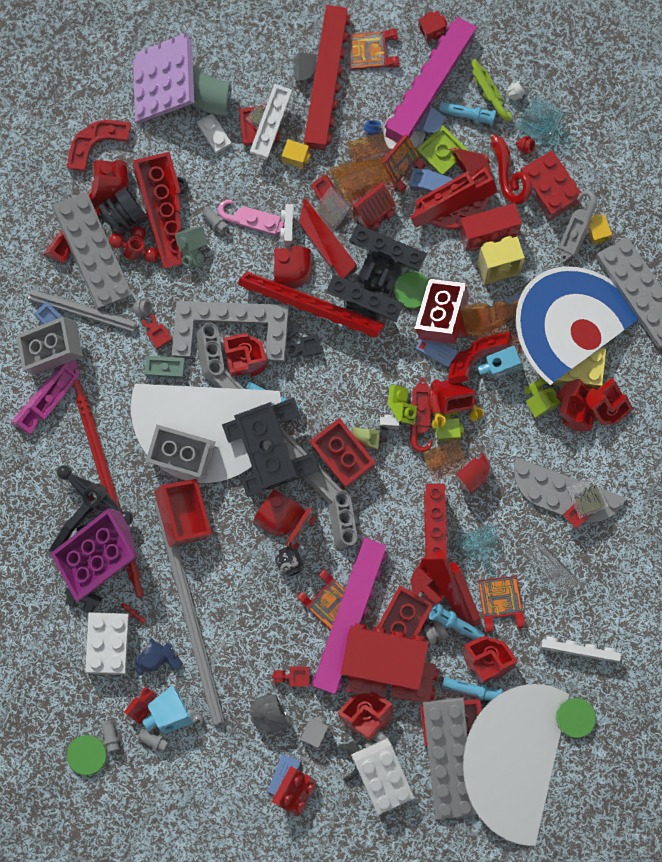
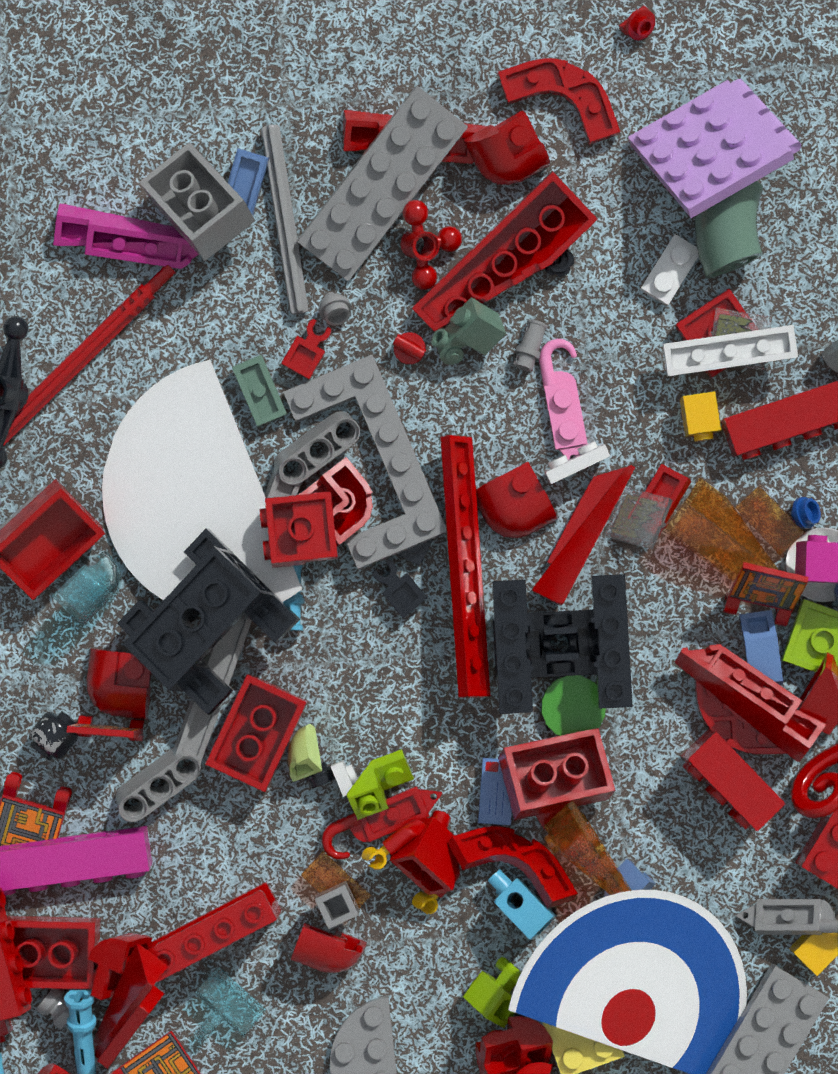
camera: 60 degrees right, 10 degrees up
(81, 88) = (639, 24): none -> red plate
(123, 211) = (463, 197): black wheel -> none
(180, 451) = (135, 487): light grey brick -> none
(183, 281) = (409, 348): none -> red plate
(222, 502) = (90, 588): none -> clear light blue brick
(247, 375) = (299, 529): none -> red plate
(374, 208) = (671, 584): red slope -> none
(451, 430) = (378, 882): lime brick -> none
(453, 454) = (337, 904): none -> light grey brick
(500, 259) = (686, 829): light yellow brick -> none

